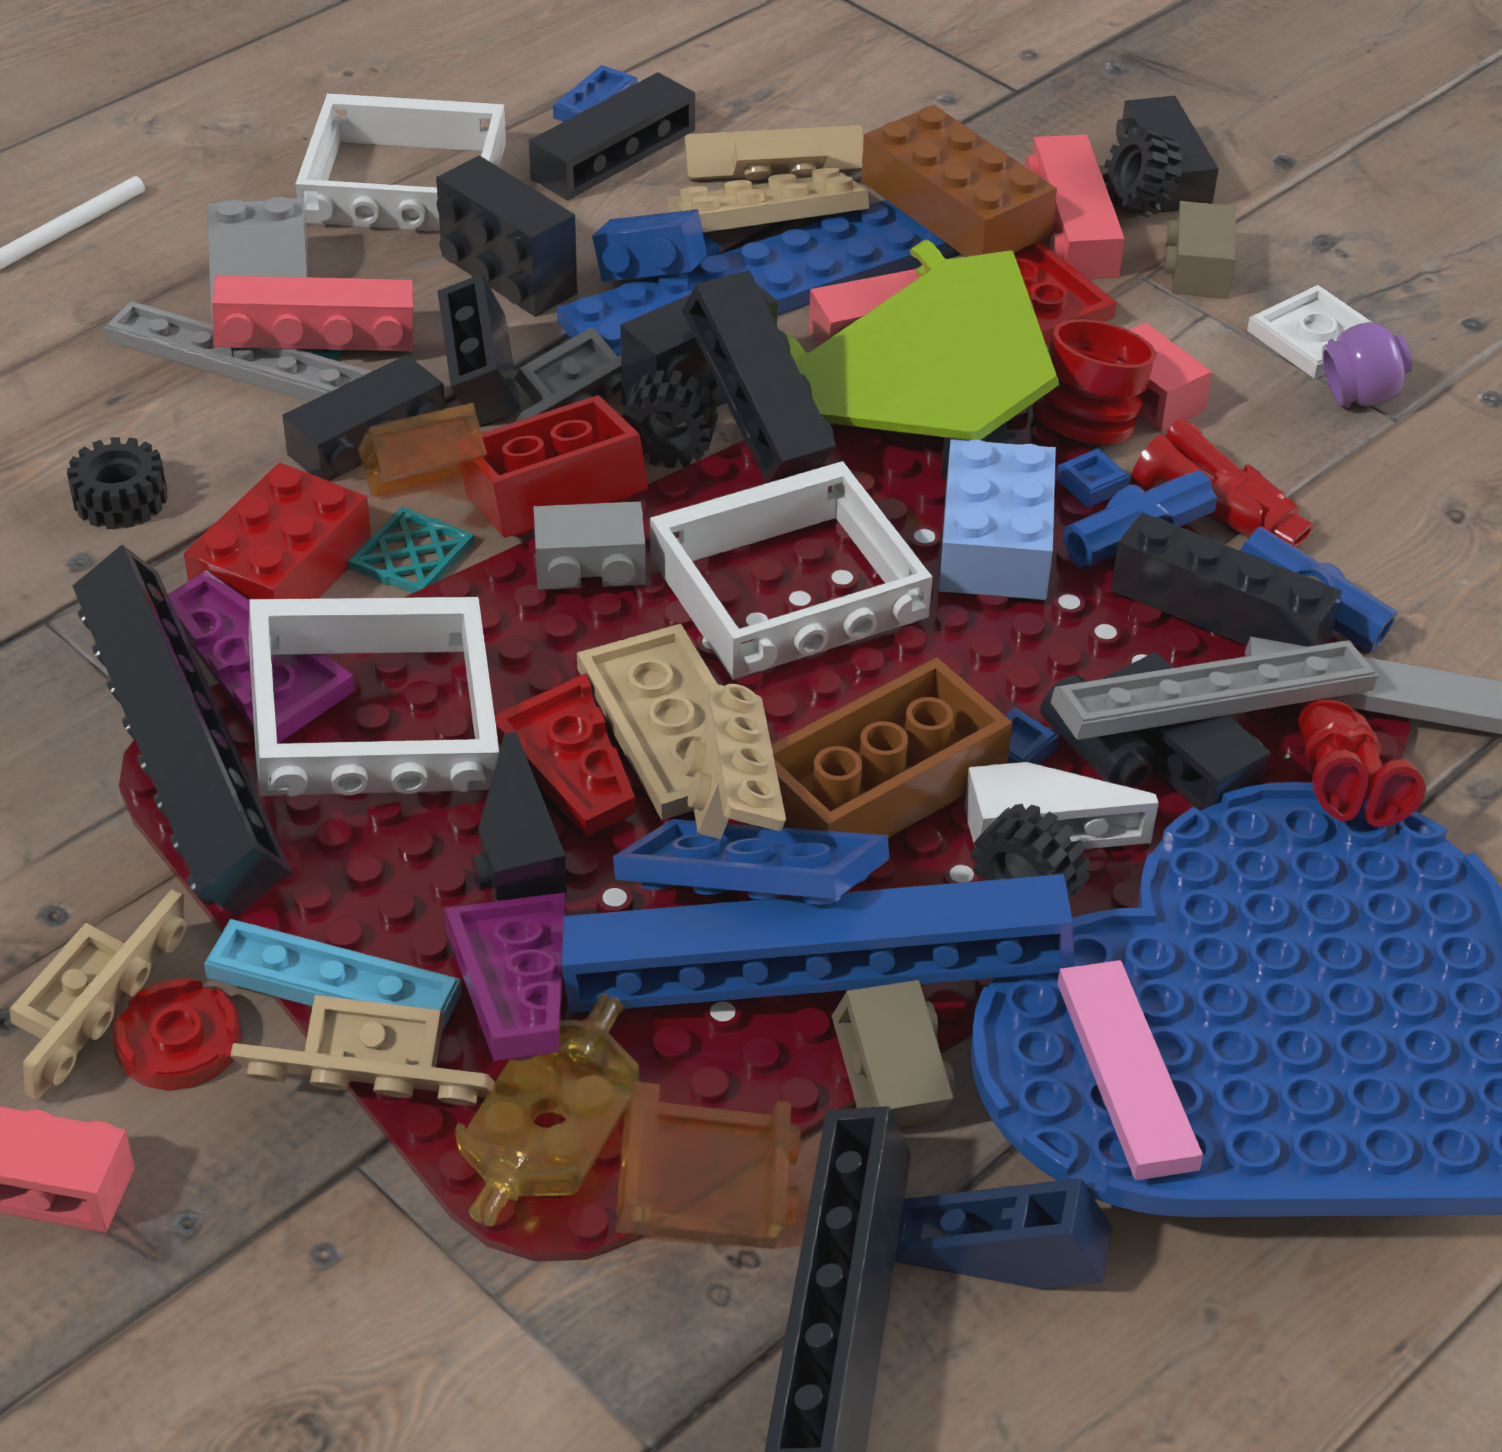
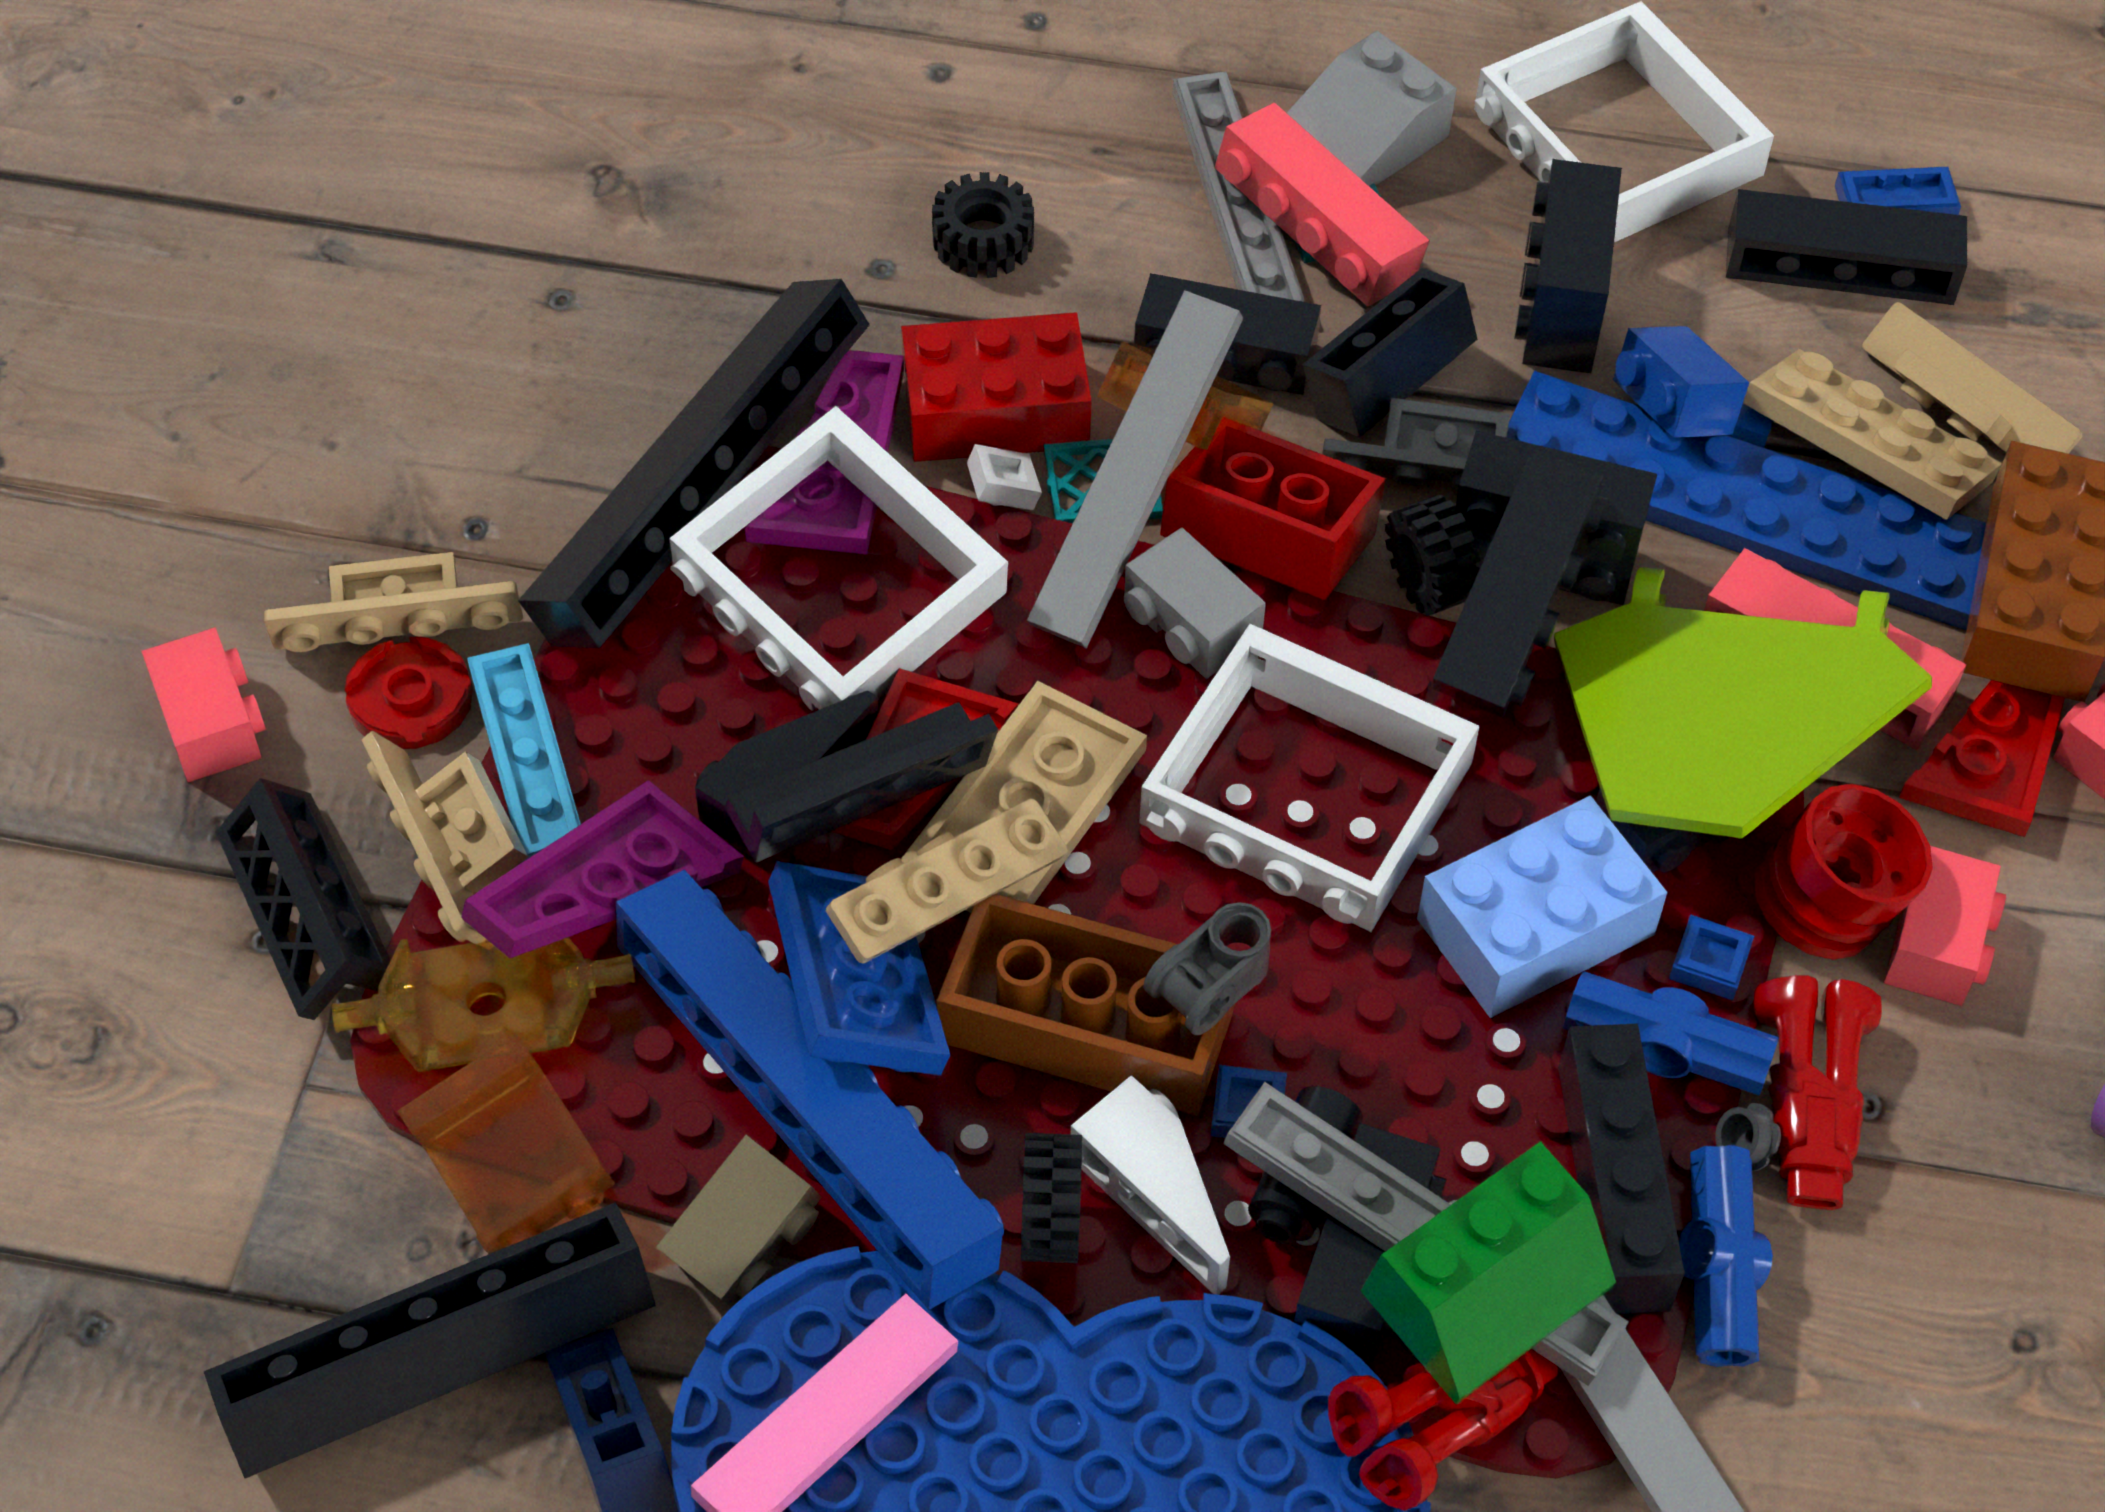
camera: 55 degrees right, 10 degrees up
(324, 1169) = (313, 880): none -> black fence
(362, 584) = (1004, 477): none -> white plate
(473, 492) = (1135, 469): none -> light grey tile
(586, 775) = (860, 780): none -> black fence
(946, 656) = (1205, 975): none -> dark grey piece
(1233, 520) = (1752, 1130): none -> dark grey plate
(1283, 660) = (1493, 1272): none -> green slope

